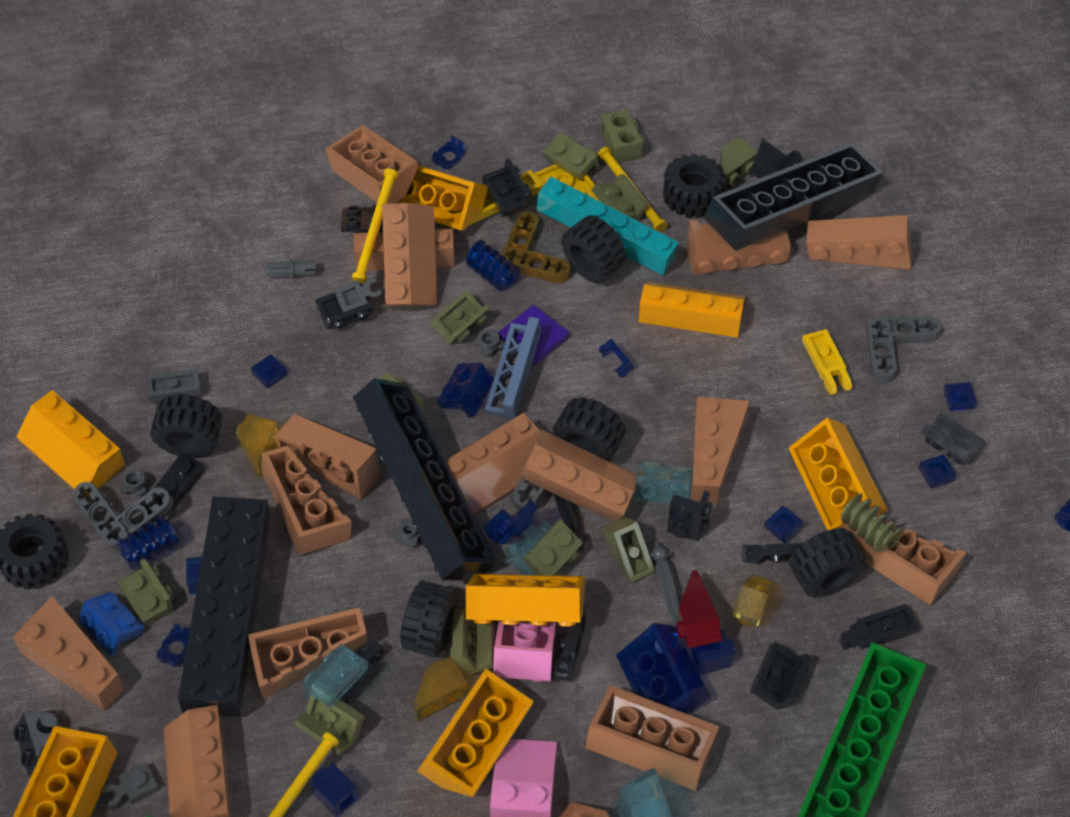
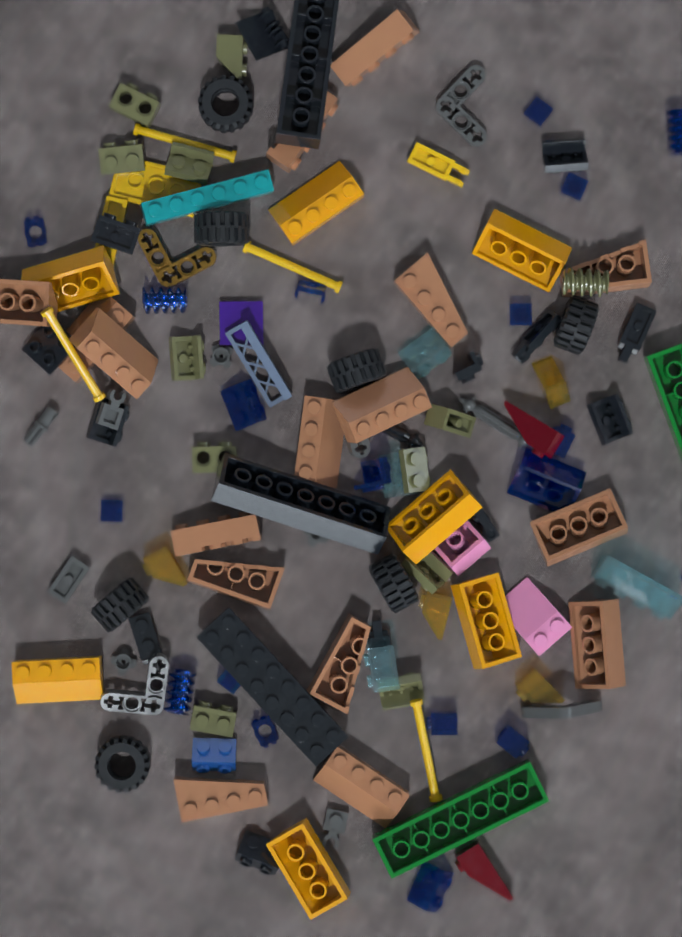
camera: 45 degrees left, 35 degrees up
(642, 373) = (293, 266): none -> yellow bar

